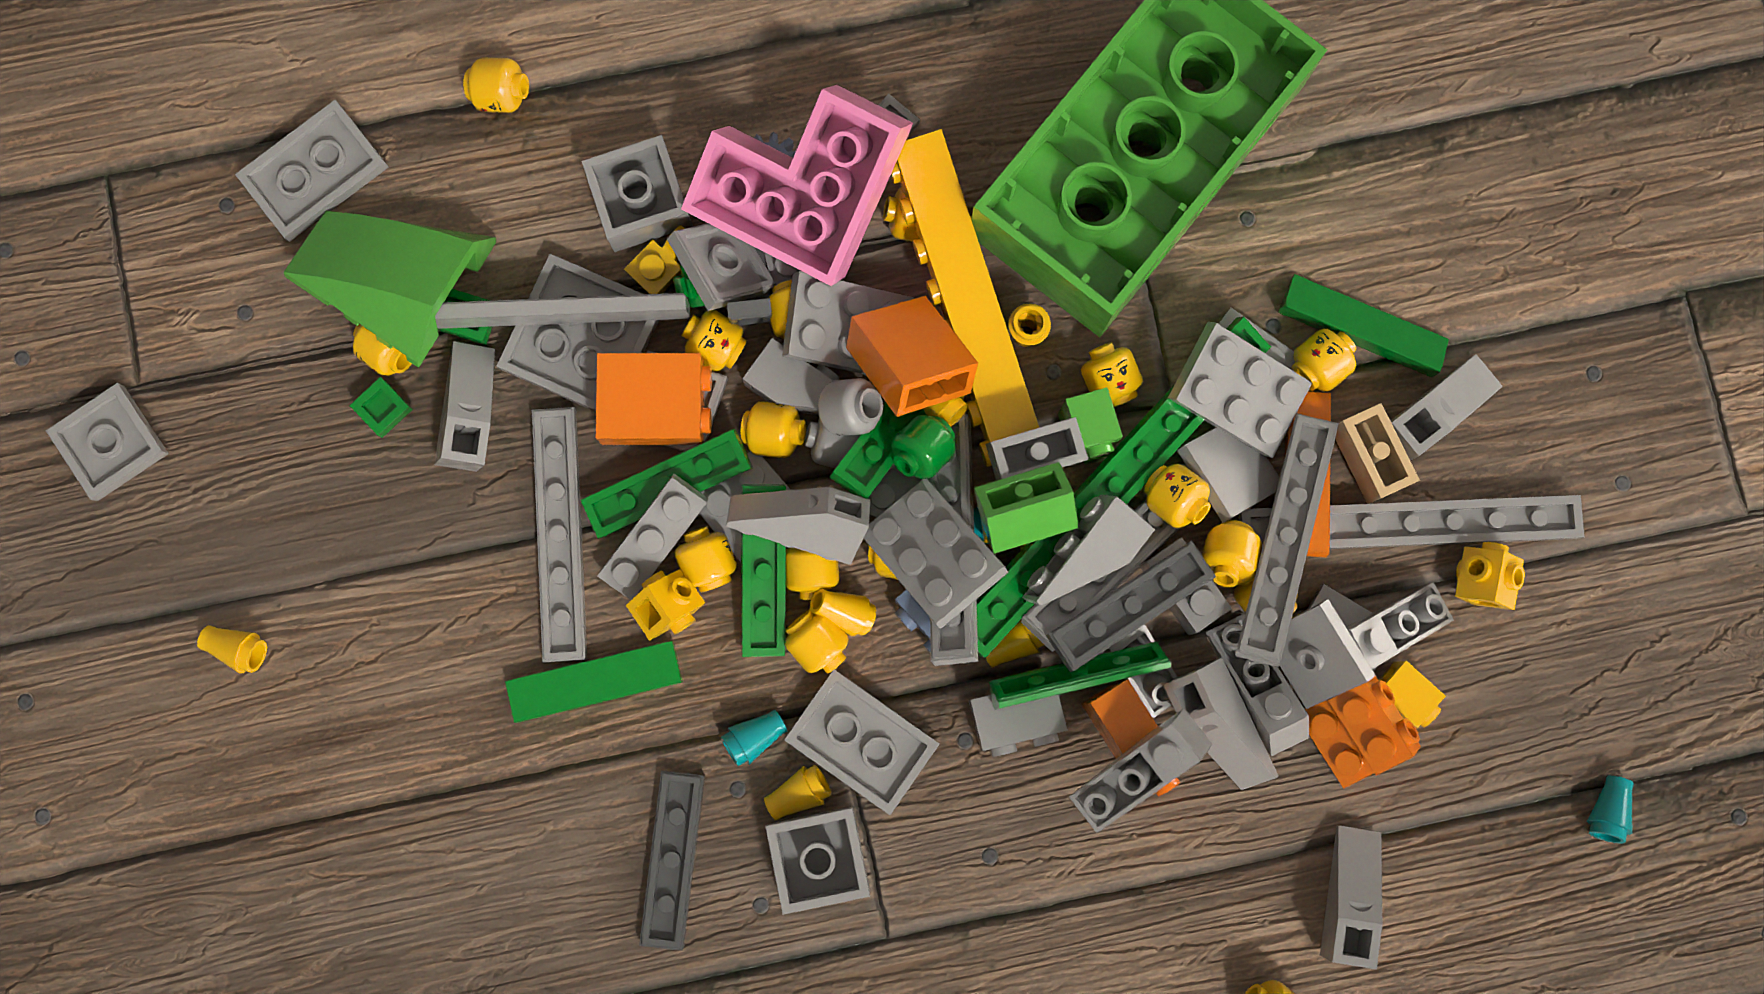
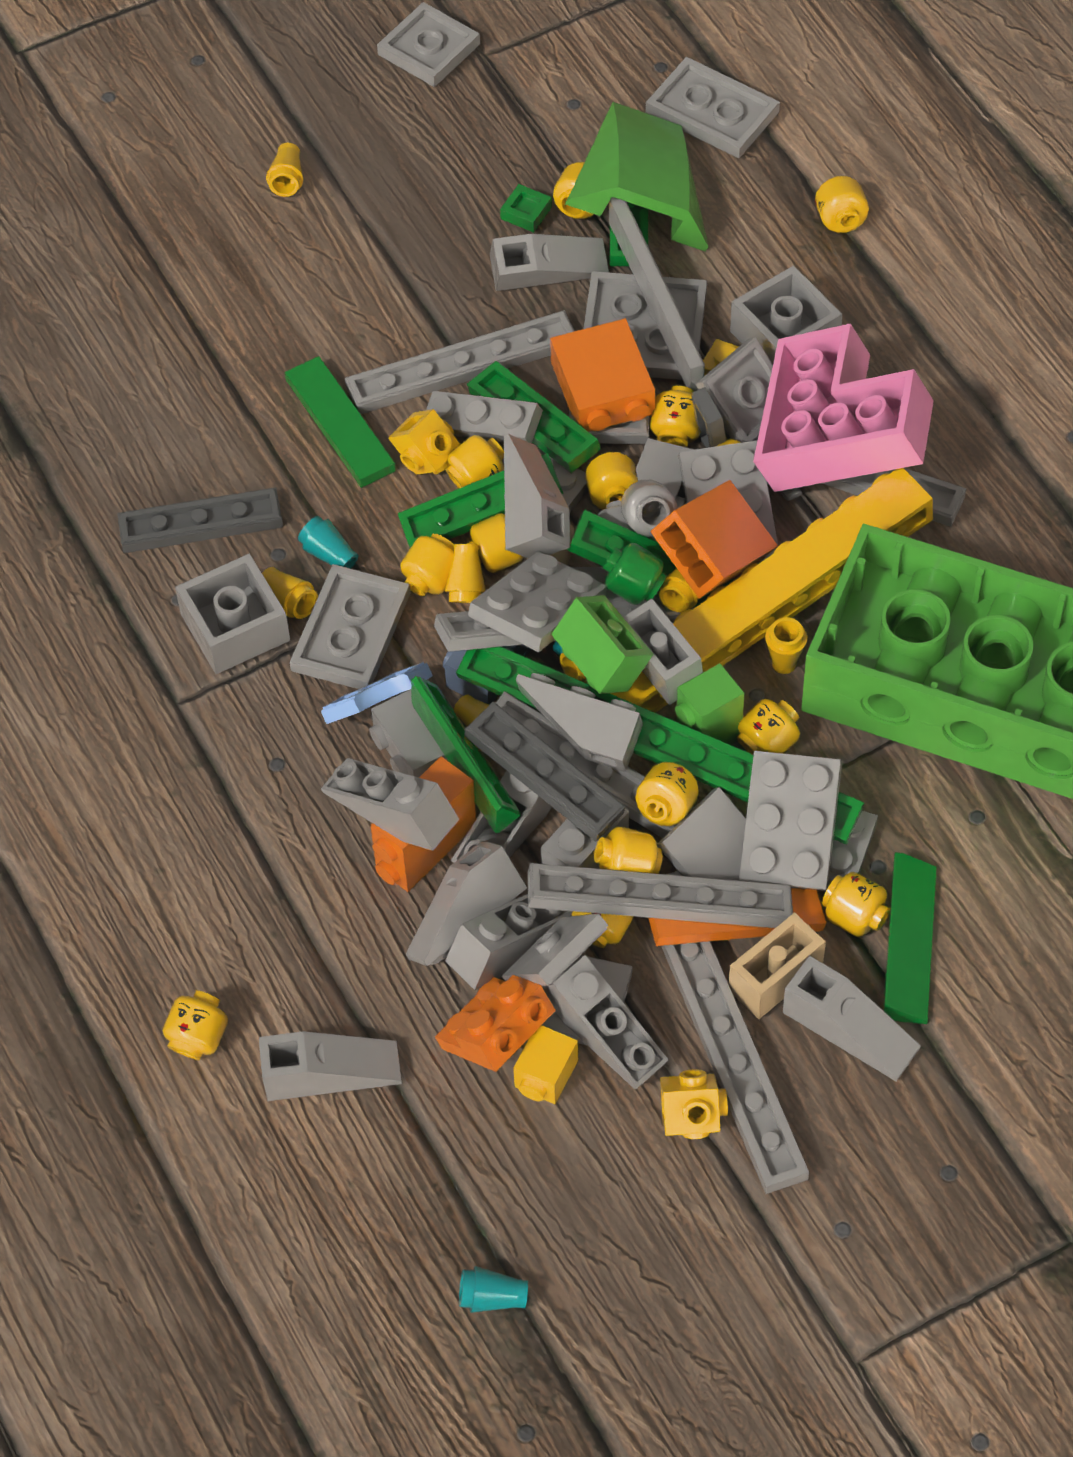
camera: 75 degrees right, 25 degrees down
(959, 757) = (374, 693): none -> light blue tile

